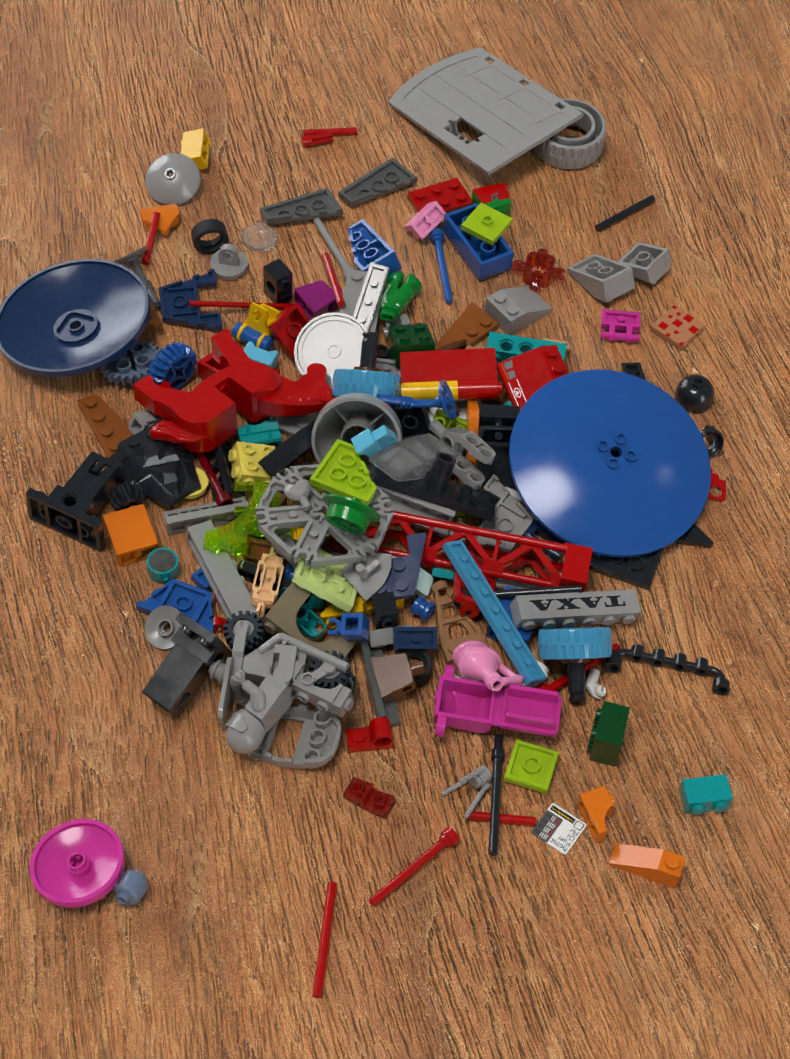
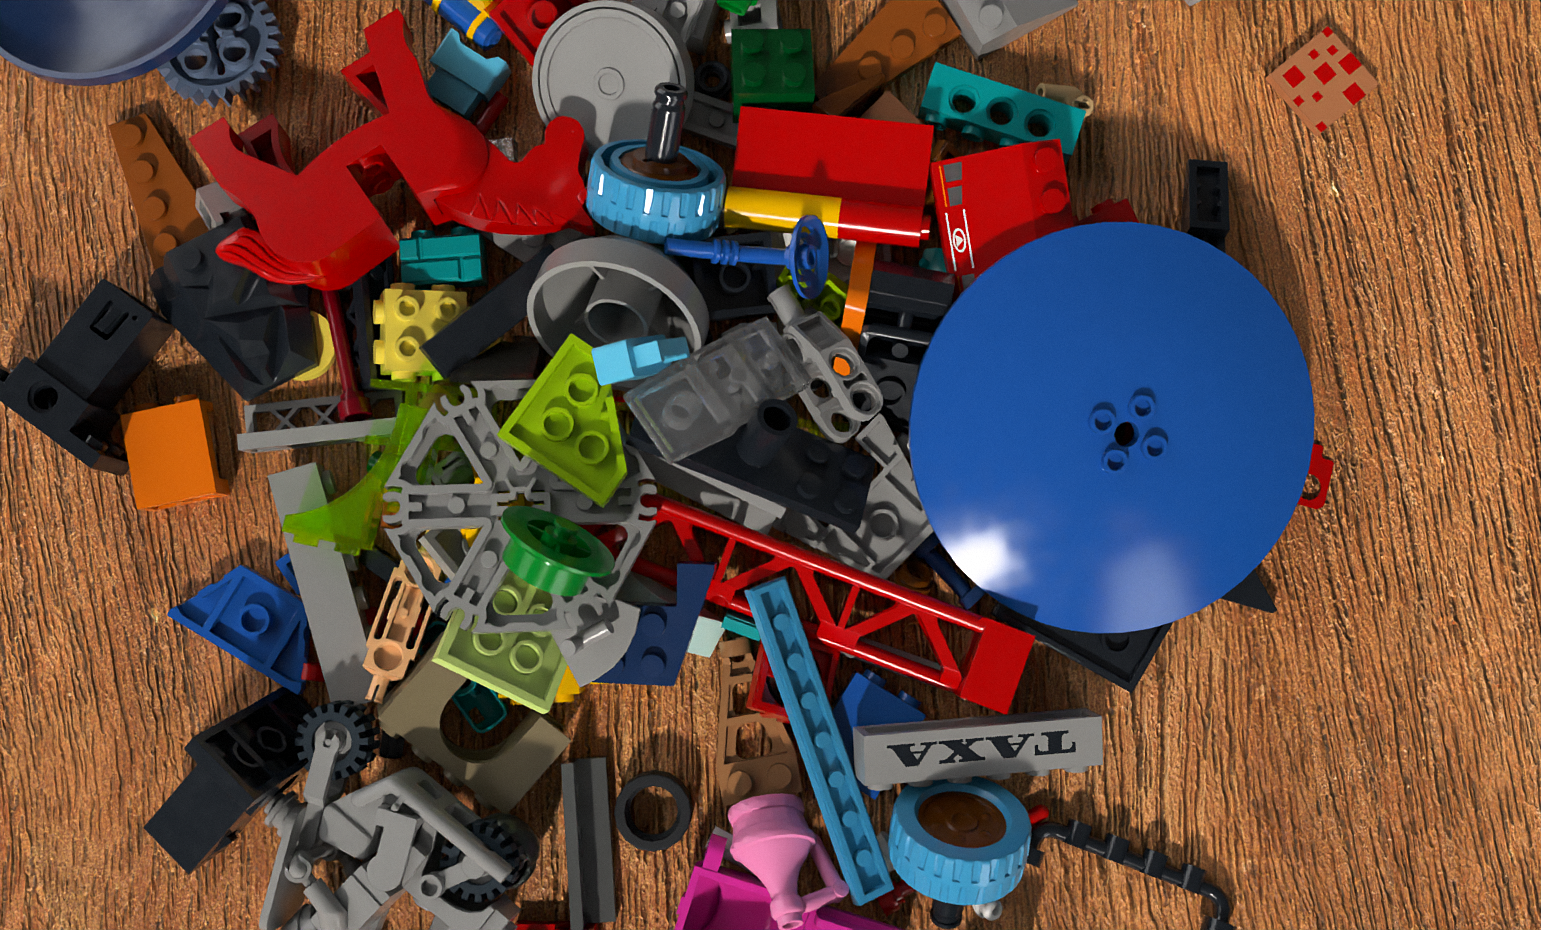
camera: 15 degrees right, 30 degrees up
(126, 495) = (172, 374): black gear -> none
(156, 626) = (214, 670): light grey dish -> none
(162, 565) = (227, 530): piece -> none
(173, 364) = (290, 79): blue gear -> none
(299, 492) = (474, 460): light grey rock -> none
(351, 627) = (543, 753): blue brick -> none
(382, 637) = (622, 752): light grey slope -> none
(383, 611) = (615, 712): black brick -> none
(396, 675) = (613, 848): torso -> none
(415, 638) = (662, 773): dark blue plate -> none
(423, 608) = (695, 689): blue wheel -> none
(502, 594) = (913, 707): black bar -> none
(621, 321) = (1208, 54): dark pink plate -> none
(695, 393) = (1319, 254): black cylinder -> none
(714, 438) = (1338, 376): black piece -> none

